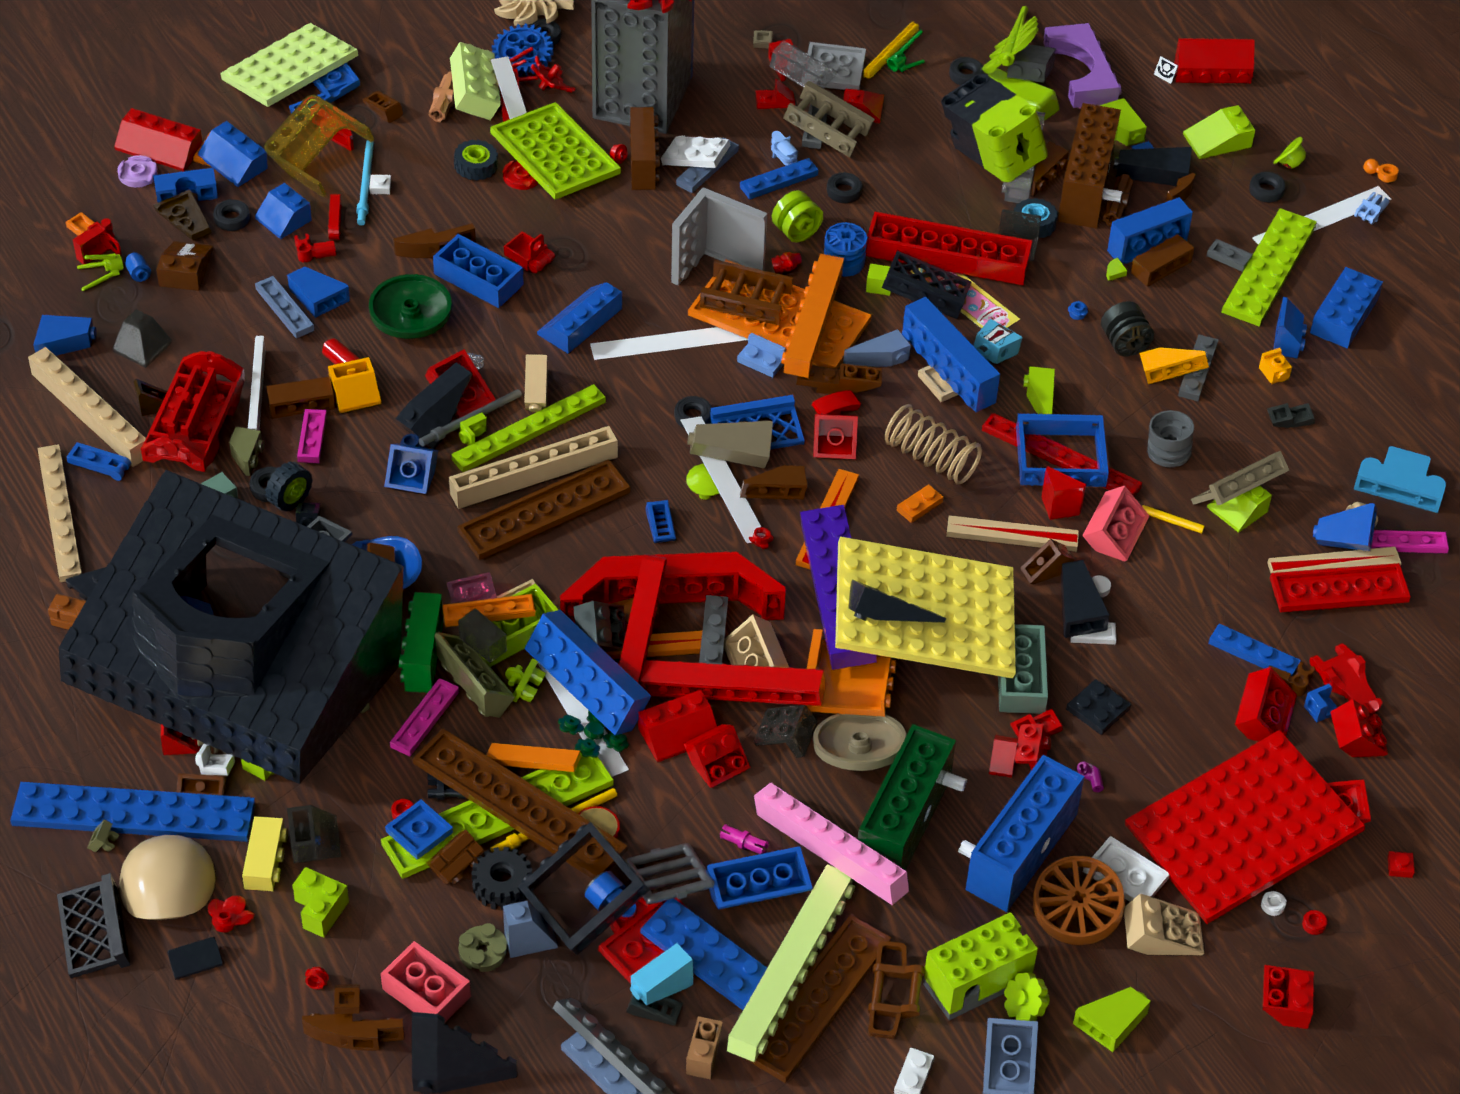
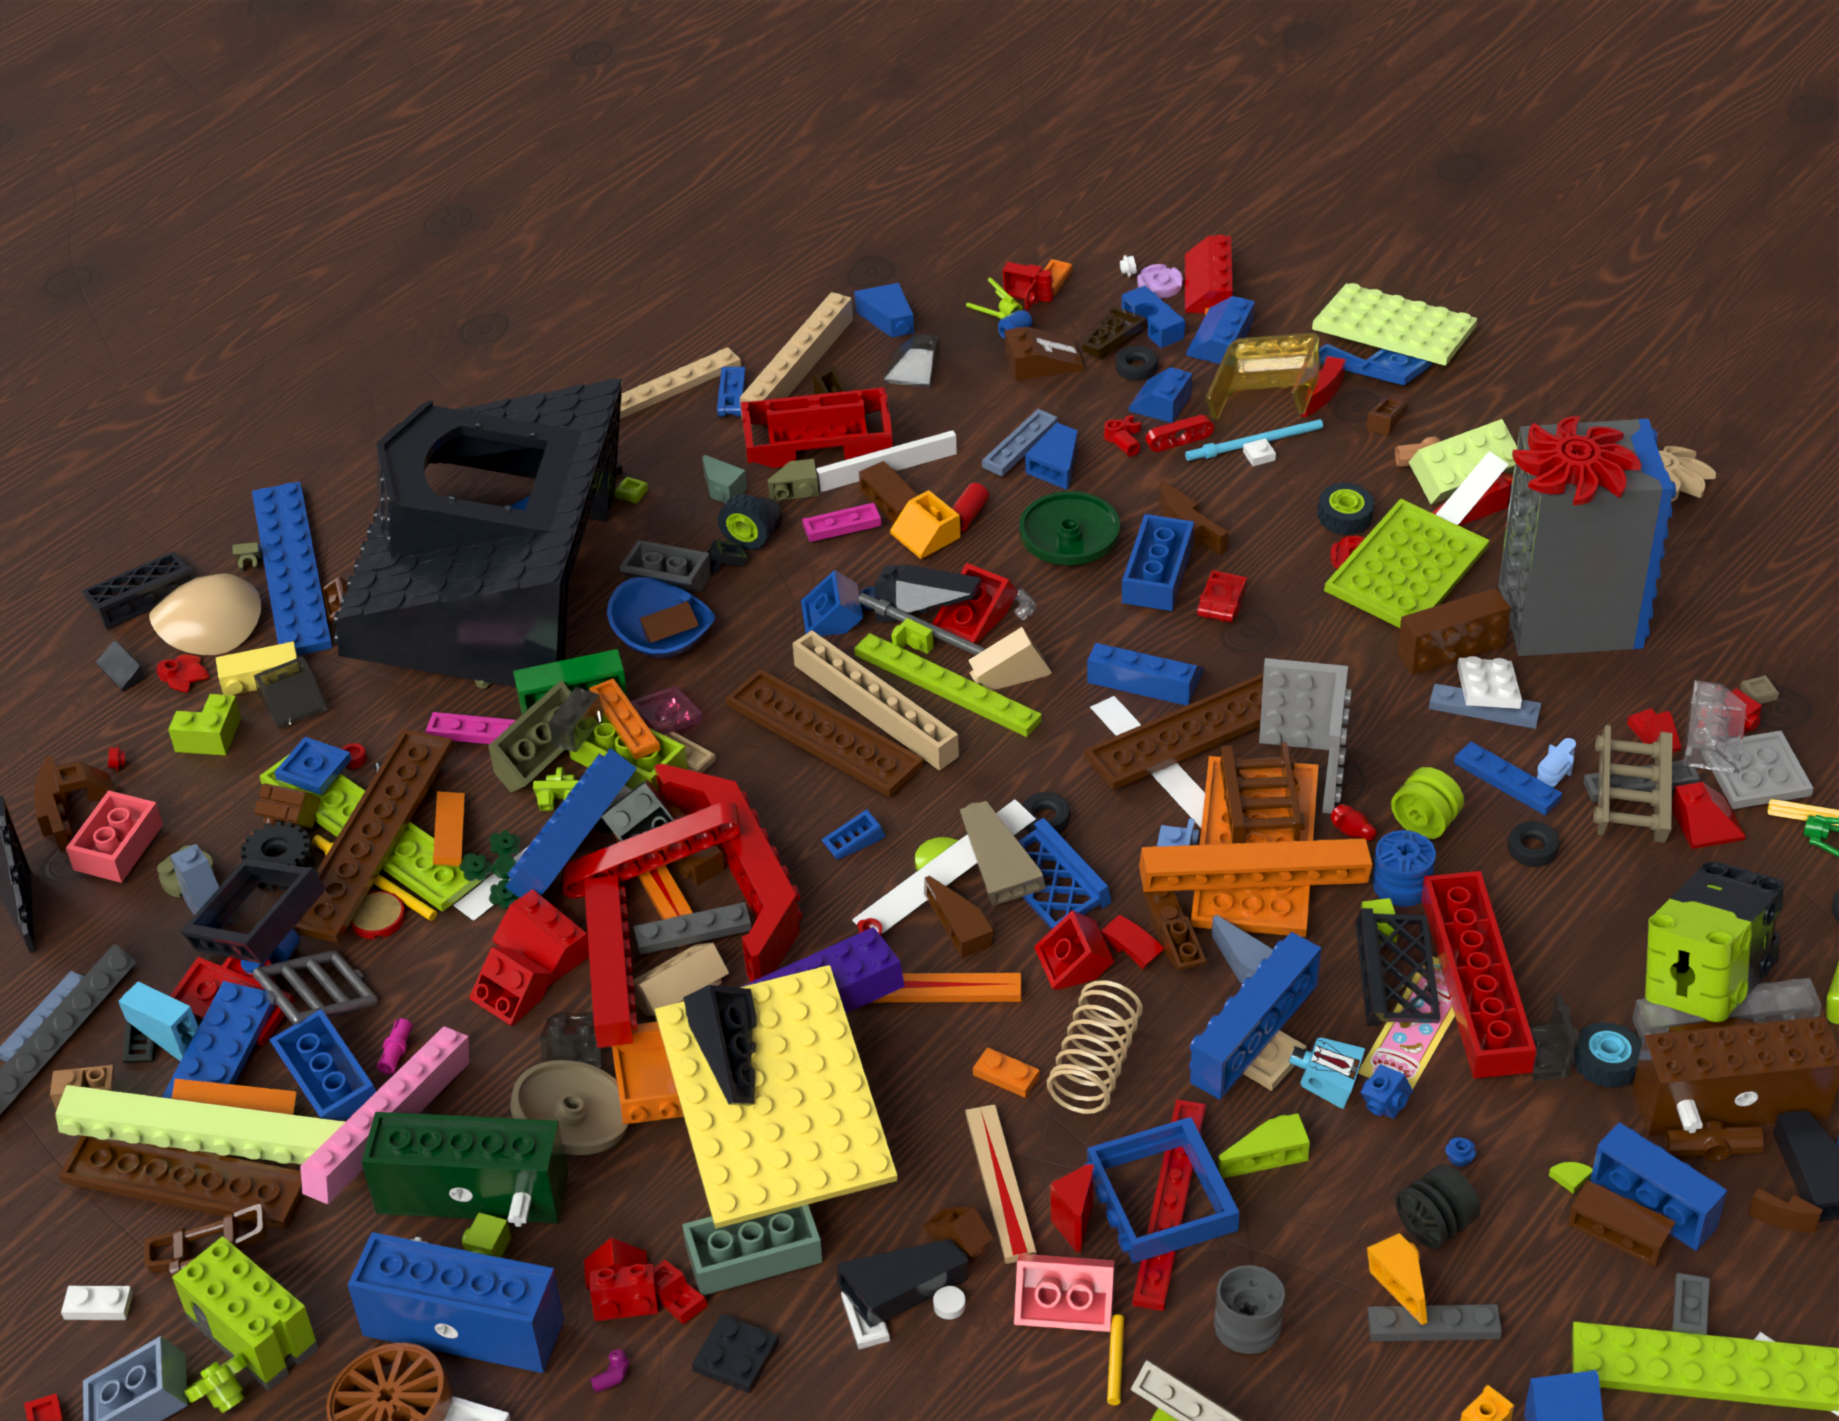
camera: 75 degrees right, 5 degrees down
(108, 181) = (1128, 265): none -> white plate
(655, 313) = (1178, 734): none -> reddish brown plate
(762, 946) = (235, 1096): none -> orange tile
(956, 819) = (487, 1236): none -> lime brick
(1026, 322) = (1386, 1092): none -> blue brick

